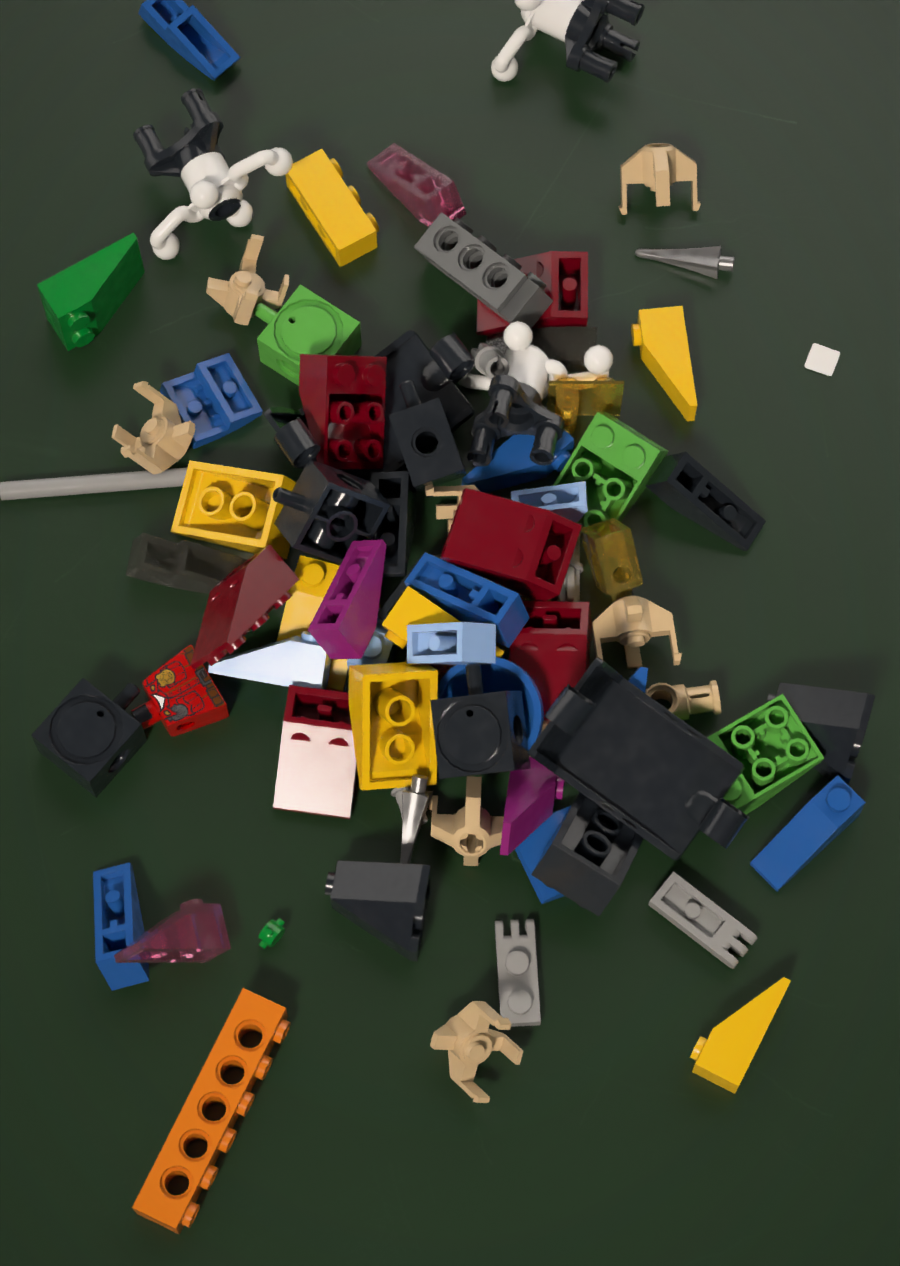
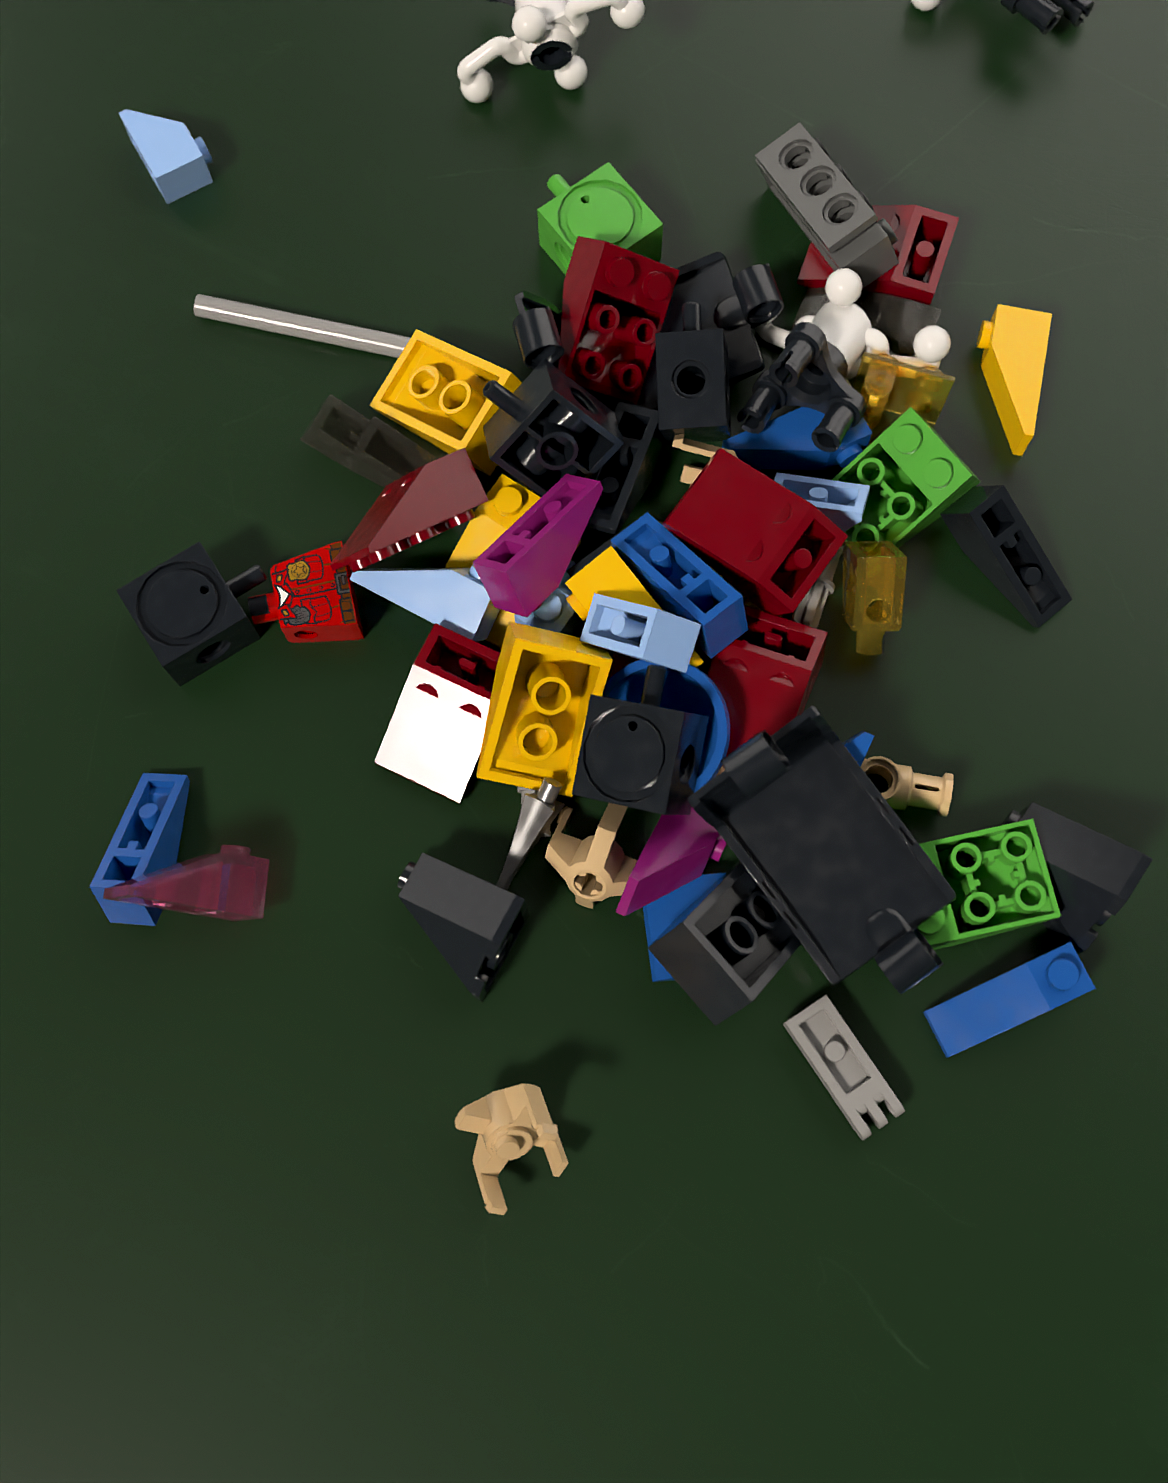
camera: 20 degrees right, 5 degrees up
(91, 291) = (374, 105): green slope -> none
(162, 437) = (394, 295): tan piece -> none
(213, 399) = (467, 271): blue slope -> none
(246, 287) = (547, 150): tan piece -> none
(248, 1014) = (68, 1198): orange brick -> none
(271, 933) = (321, 913): green piece -> none
(332, 207) = (678, 92): yellow brick -> none
(417, 185) = (783, 93): clear pink slope -> none
(489, 360) = (800, 307): light grey axle -> none
(518, 974) = (595, 1059): light grey hinge -> none
(632, 623) = (872, 674): tan piece -> none
(658, 168) = (1071, 148): tan piece -> none
(701, 260) = (1088, 271): flat silver piece -> none
(735, 1040) = (836, 1238): yellow slope -> none

